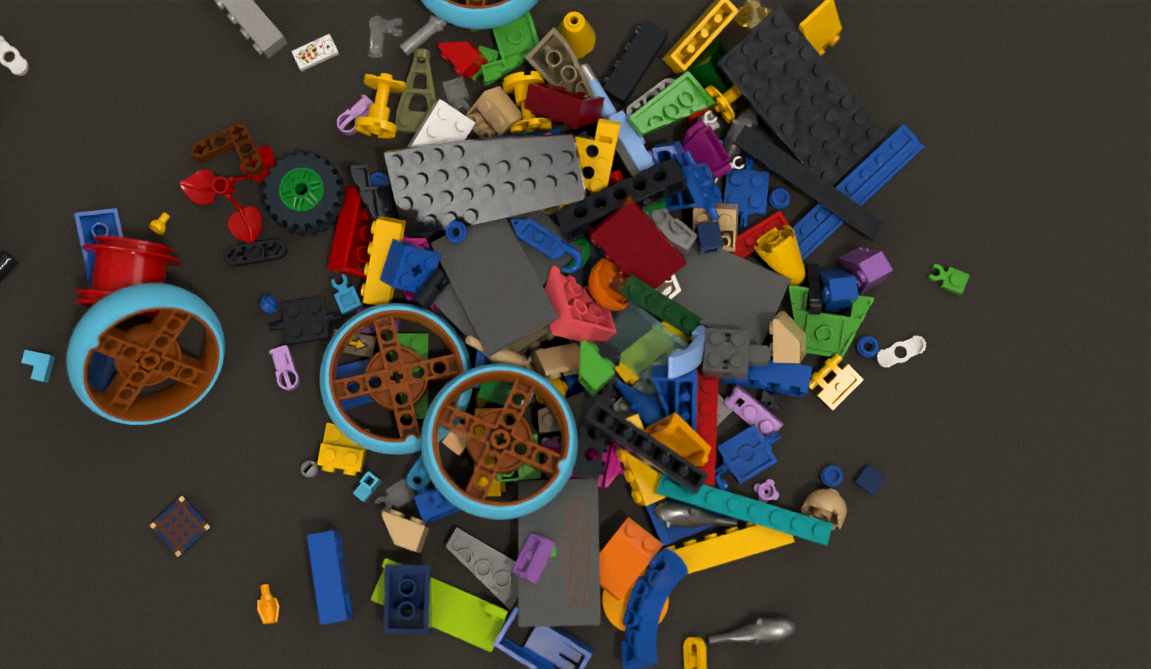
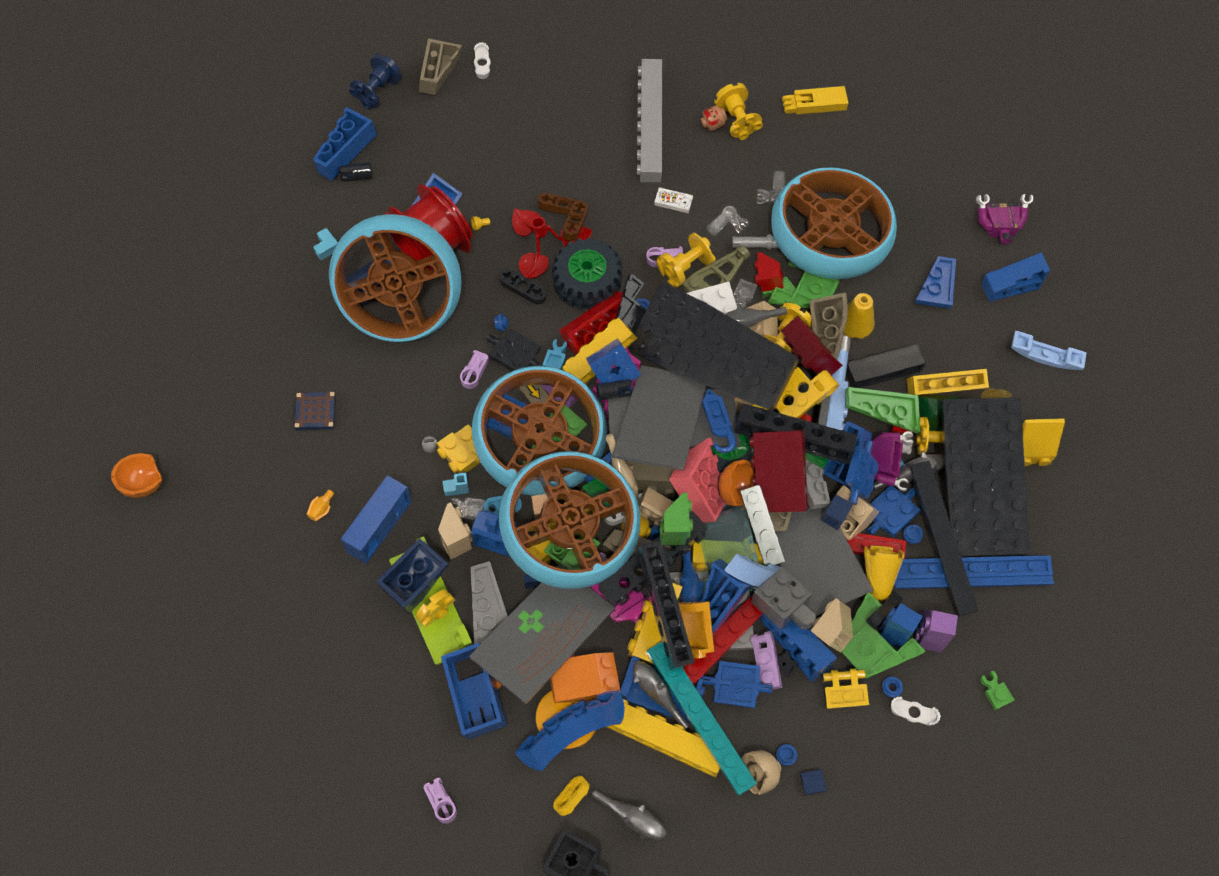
camera: 35 degrees right, 15 degrees down
(450, 231) = (662, 364): blue plate -> none
(452, 608) = (435, 609): none -> yellow plate
(484, 121) = (751, 317): none -> dark grey piece
(533, 557) = (522, 620): medium lavender slope -> none
(772, 493) = (734, 721): lavender plate -> none

